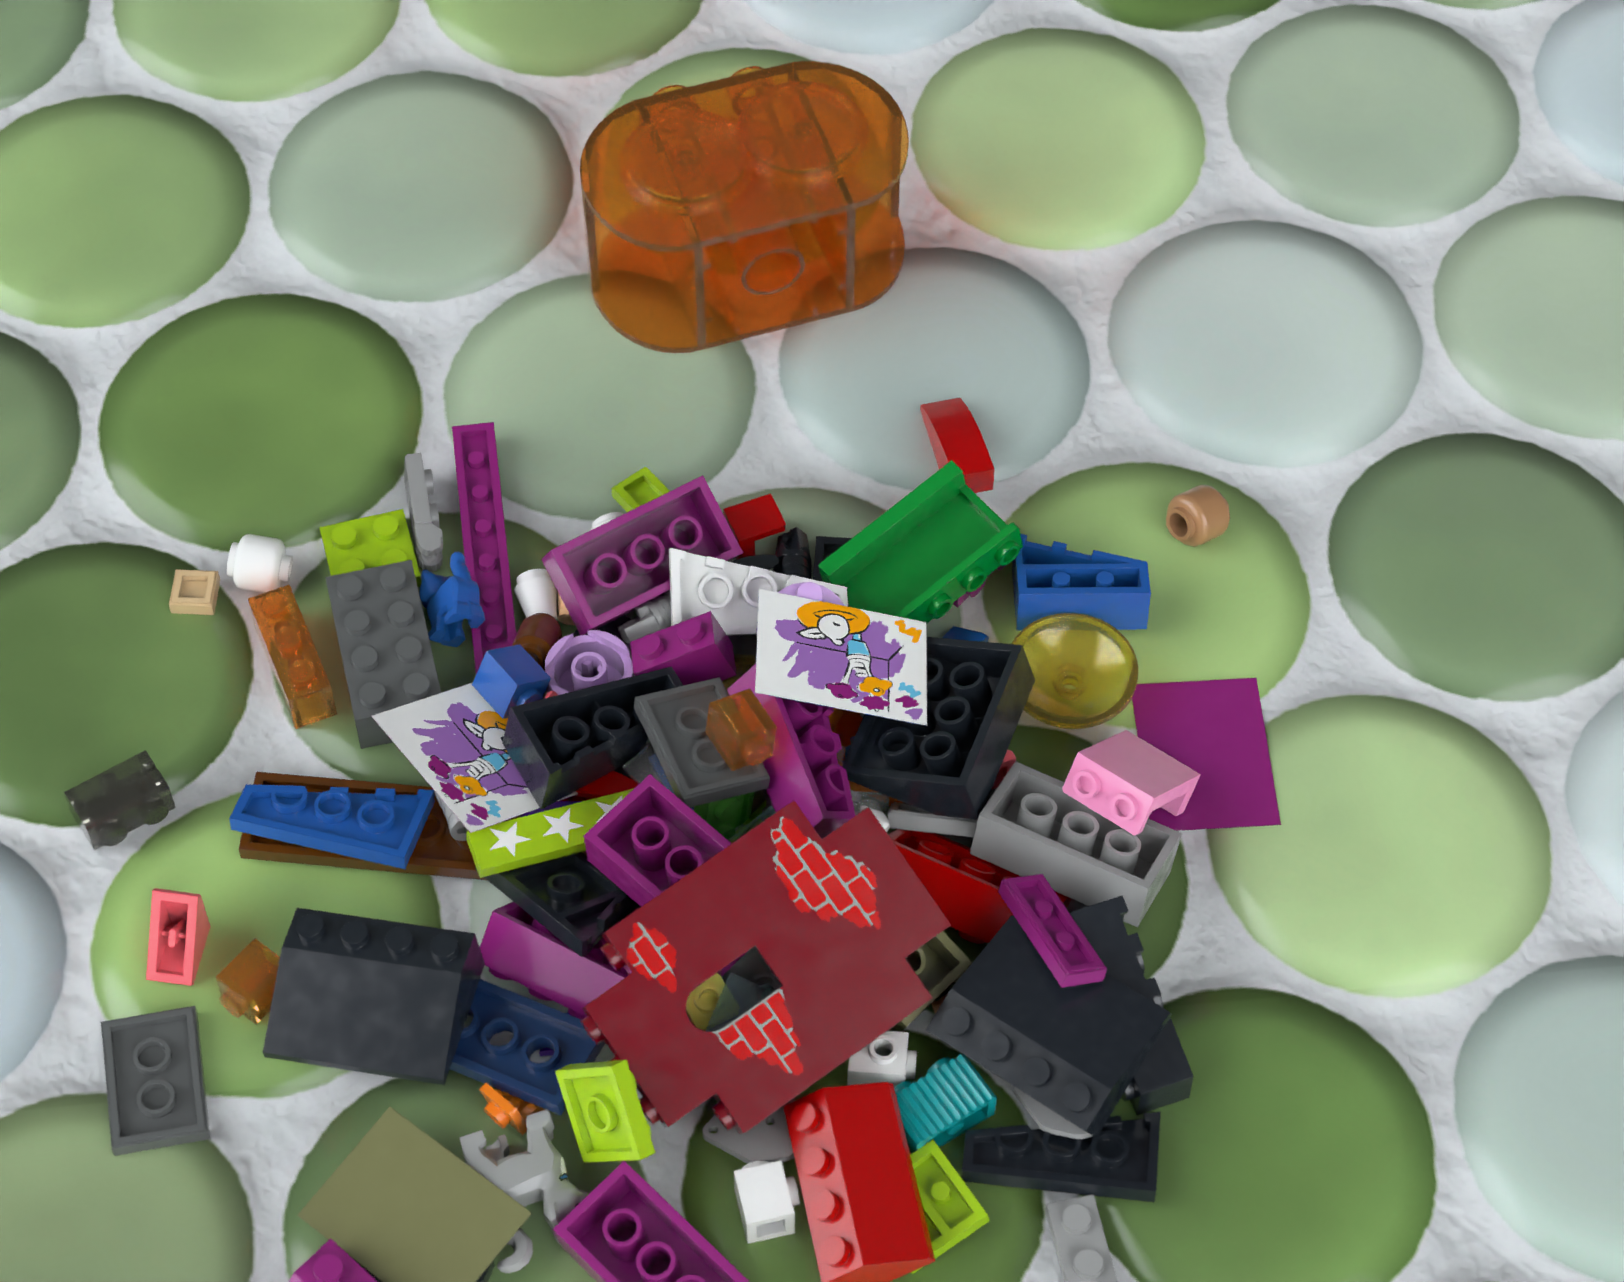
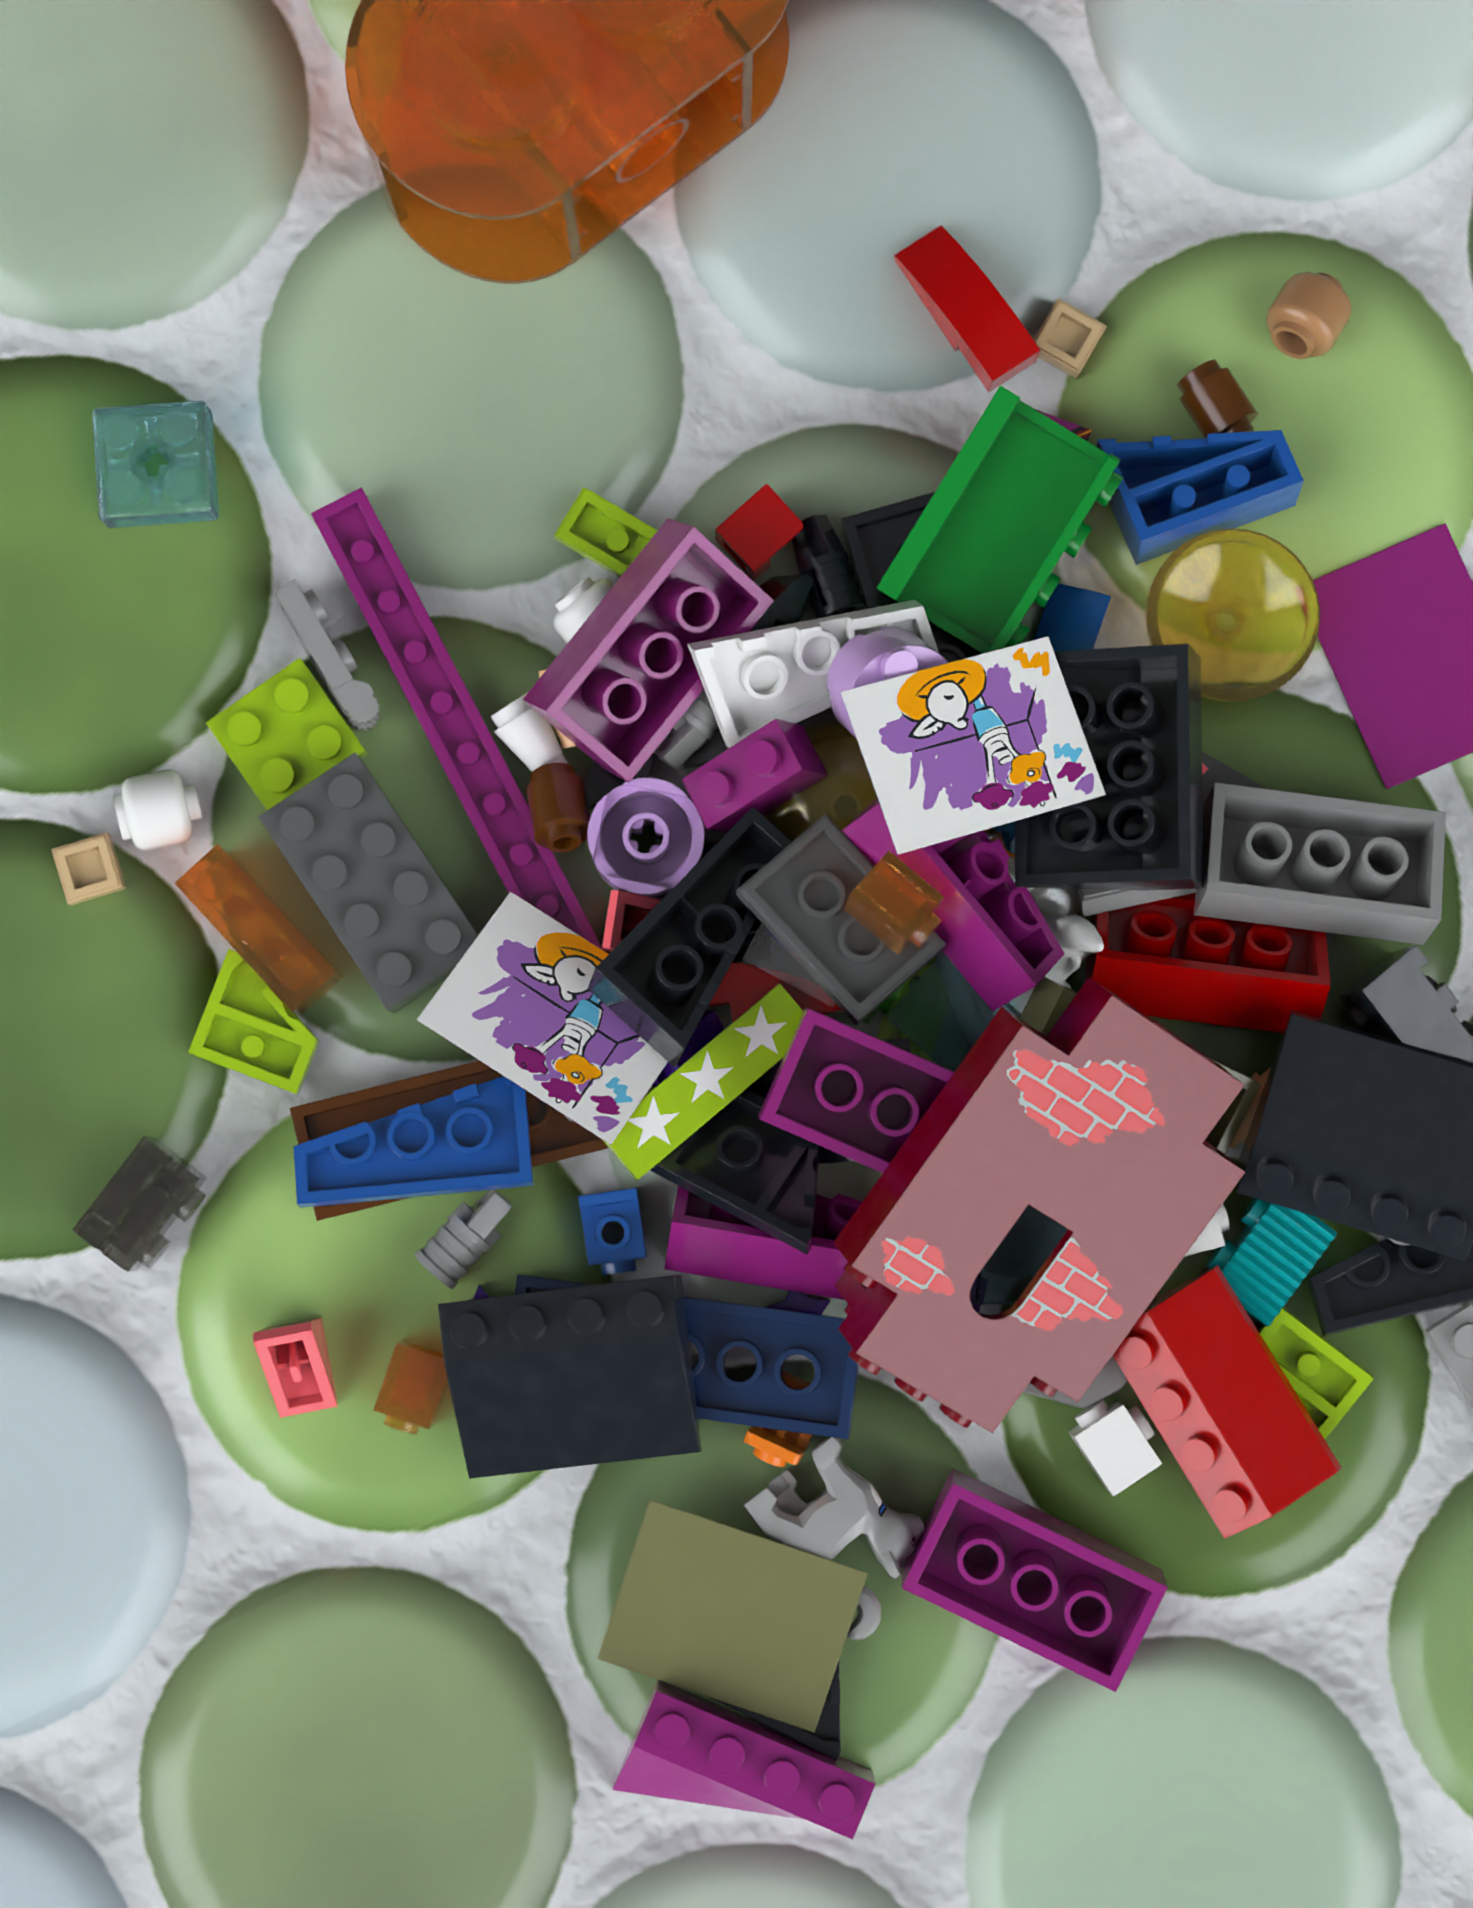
camera: 25 degrees left, 30 degrees up
(155, 1080) = (351, 1541): dark grey tile -> none
(255, 720) = (253, 1029): none -> lime wing
(343, 894) = (464, 1238): none -> light grey hinge
(363, 373) = (181, 490): none -> clear light blue brick
(450, 602) = (429, 789): blue animal -> none
(454, 910) = (616, 1206): none -> blue brick
(510, 679) = (559, 890): blue brick -> none
(605, 1111) = (912, 1437): lime plate -> none
(1022, 486) = (1068, 338): none -> tan tile
(1052, 930) = (1349, 1023): magenta tile -> none
(1111, 537) = (1216, 400): none -> reddish brown brick
(1129, 780) = (1363, 761): bright pink panel -> none

